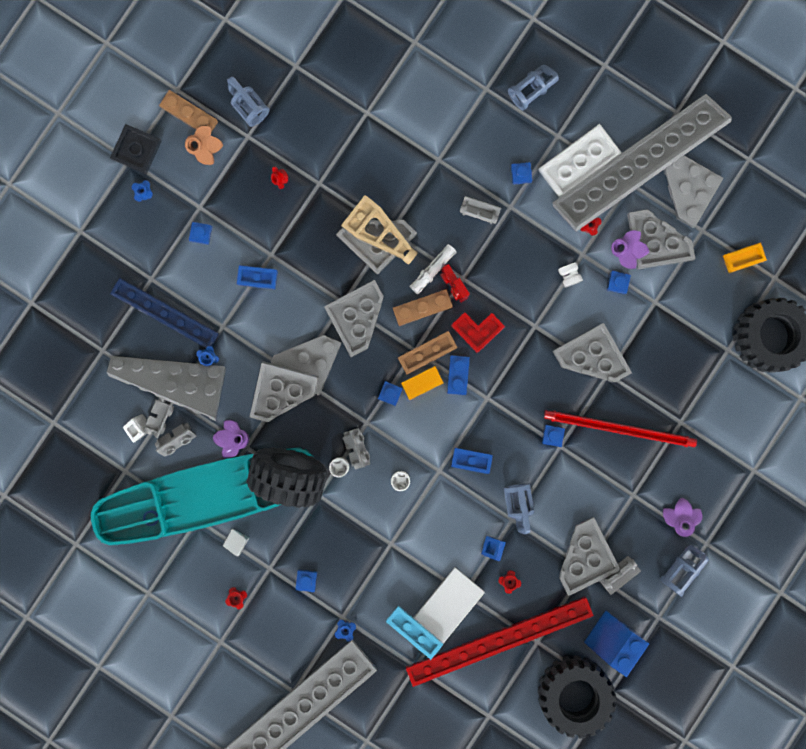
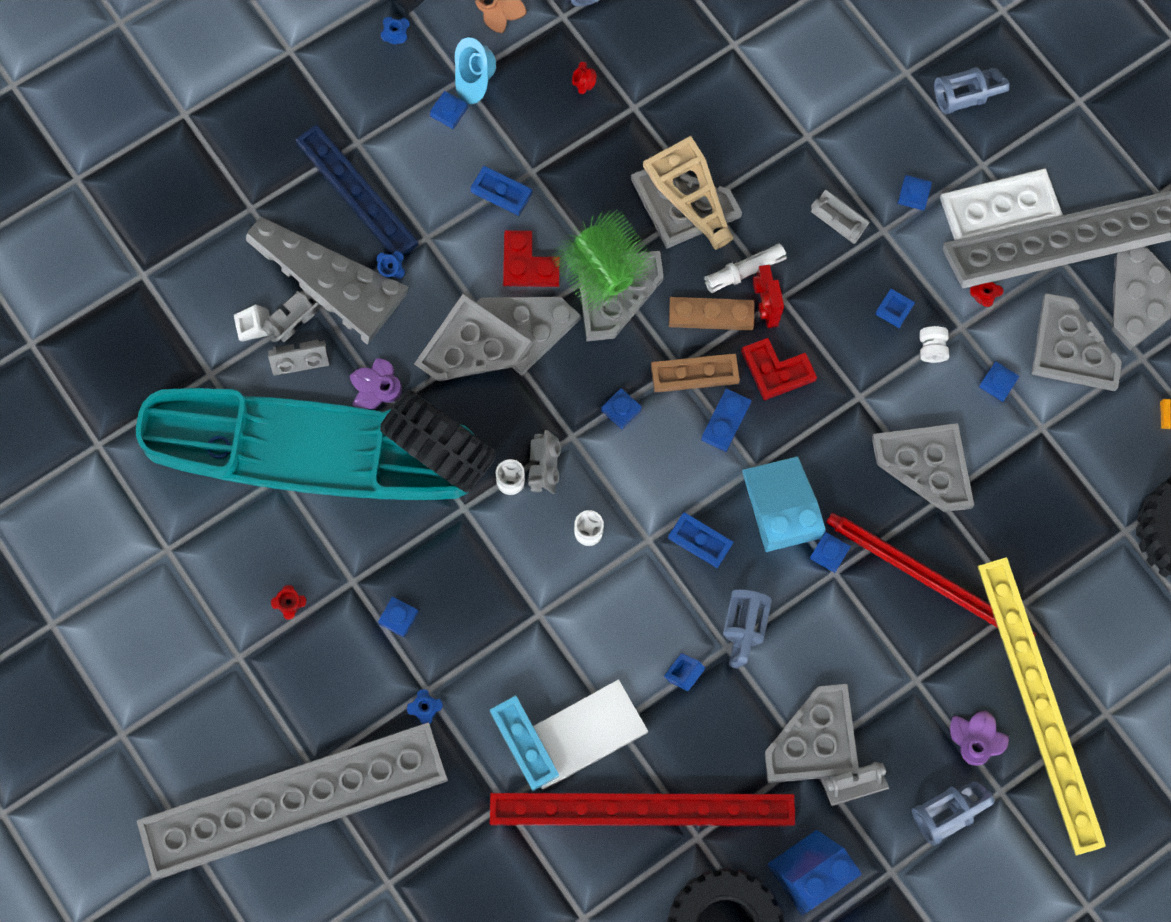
camera: 15 degrees right, 15 degrees down
(205, 199) = (473, 69): none -> medium azure piece
(235, 542) = (322, 525): white slope -> none
(291, 324) = (524, 270): none -> red plate
(343, 308) = (604, 260): none -> bright green piece
(422, 383) = (671, 411): light orange tile -> none
(509, 587) = (694, 724): red plate -> none
(513, 416) = (783, 504): none -> medium azure slope
(537, 259) = (895, 308): none -> blue plate
(632, 249) = (1032, 342): medium lavender plate -> none
(715, 485) = (1041, 707): none -> light yellow plate

